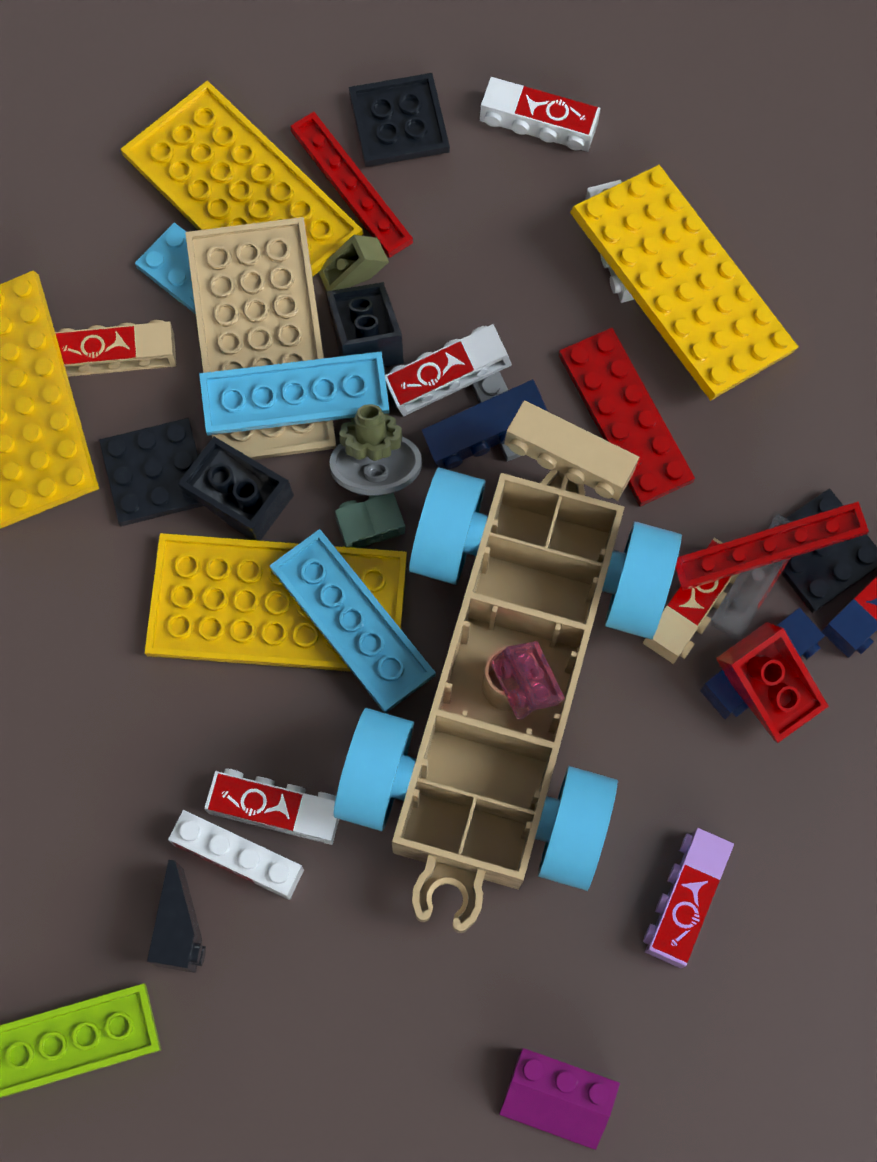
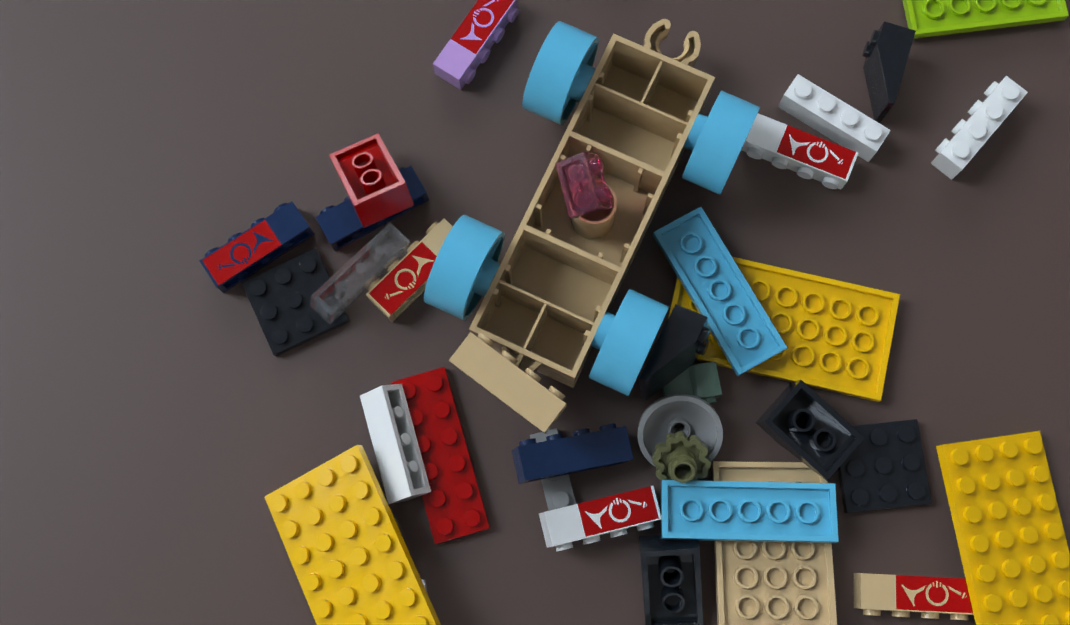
camera: 165 degrees left, 5 degrees up
(57, 871) = (982, 123): none -> white brick
(390, 543) = (676, 349): none -> black slope
(676, 412) = (395, 443): none -> white brick
(771, 545) = (342, 283): red plate -> none

